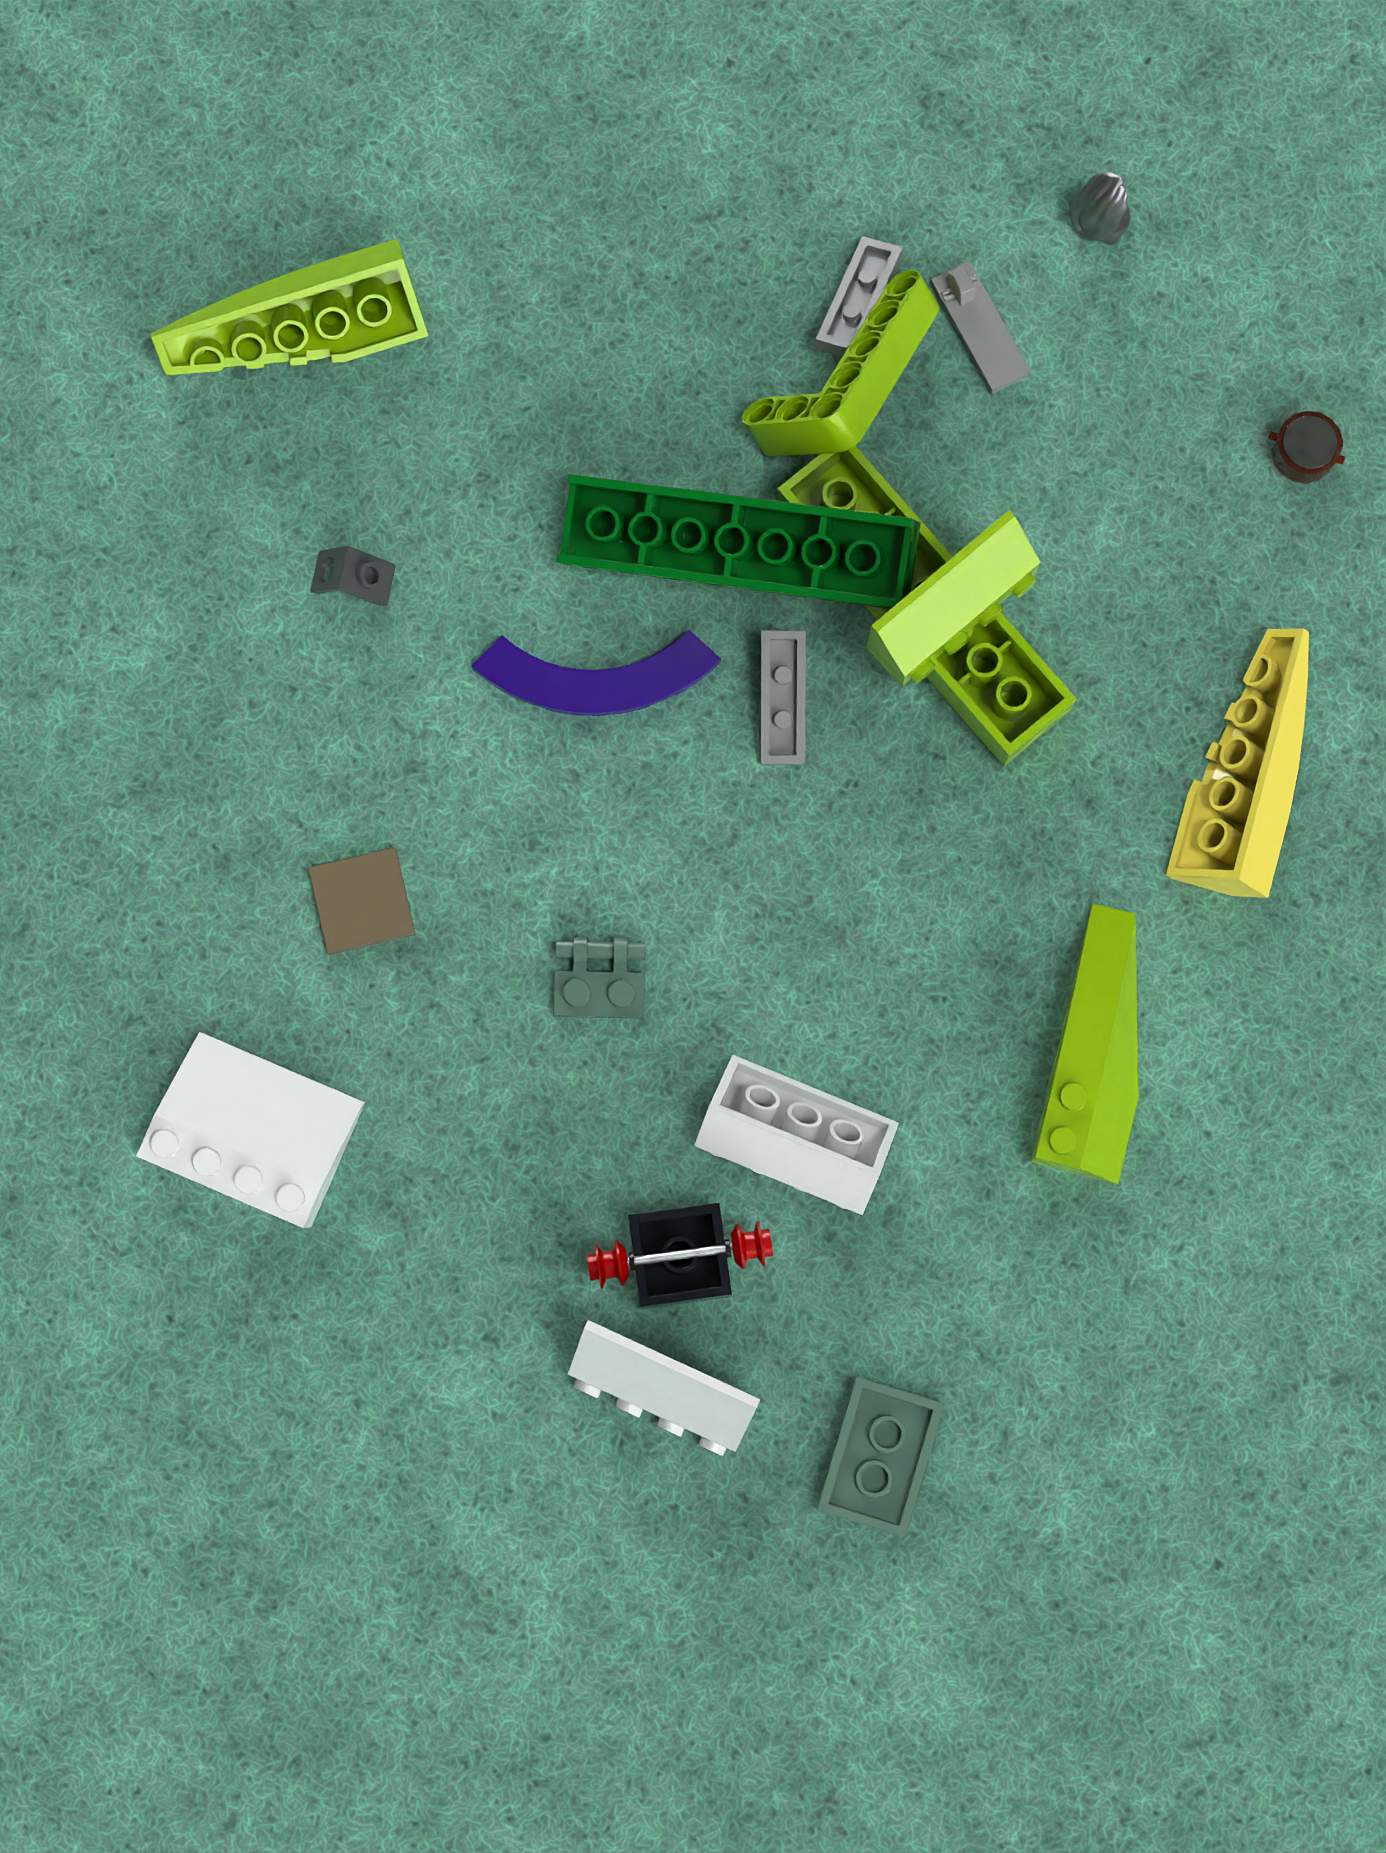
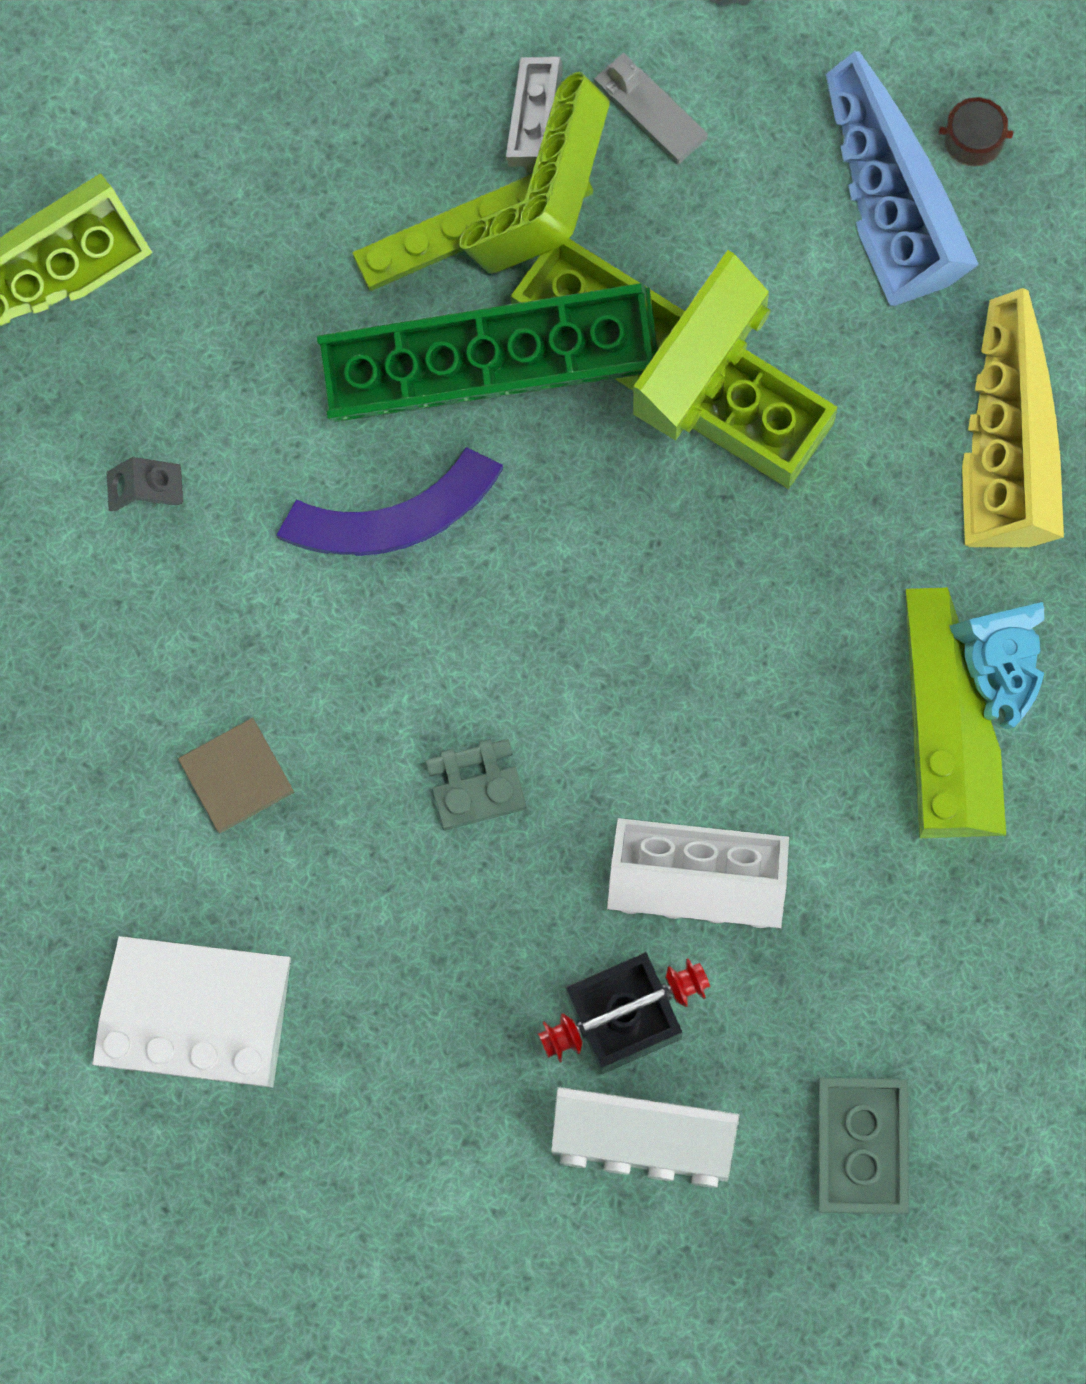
camera: 10 degrees left, 5 degrees down
(721, 401) = (433, 238): none -> lime plate
(782, 697) = (569, 482): light grey hinge -> none
(1168, 1006) = (1003, 659): none -> medium azure piece
(1209, 507) = (902, 204): none -> light blue wedge

